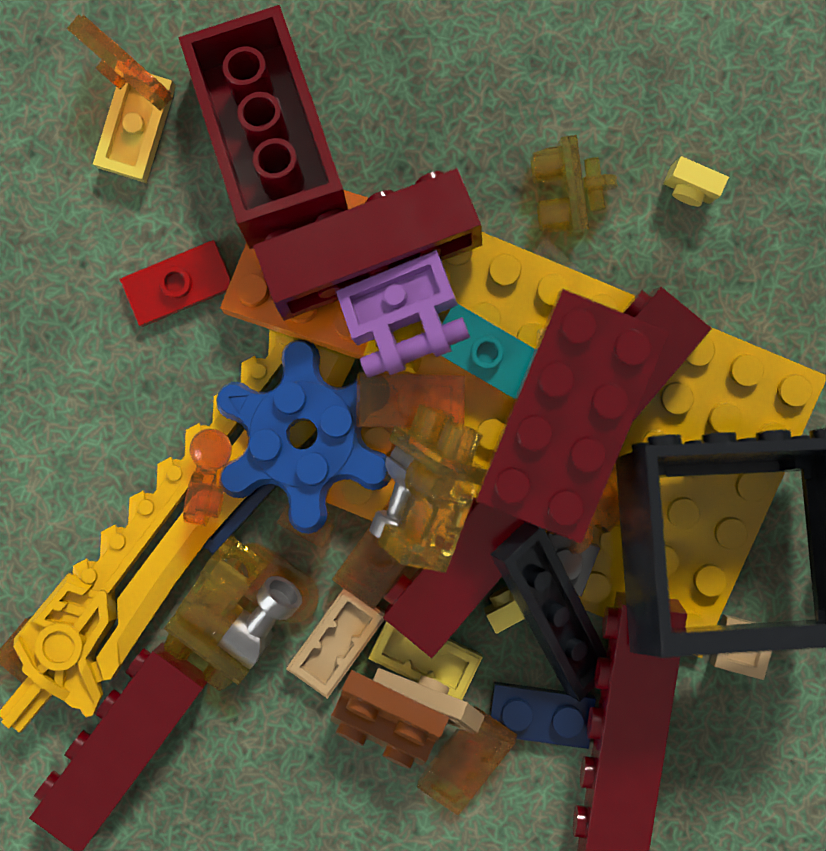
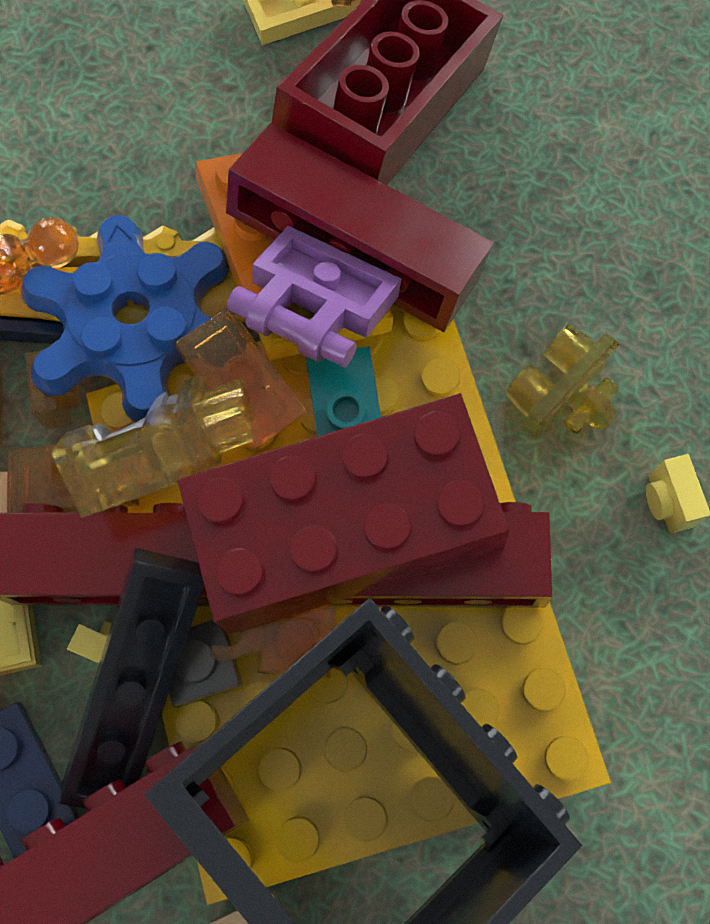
camera: 45 degrees right, 15 degrees down
(177, 283) = (190, 124): red plate -> none

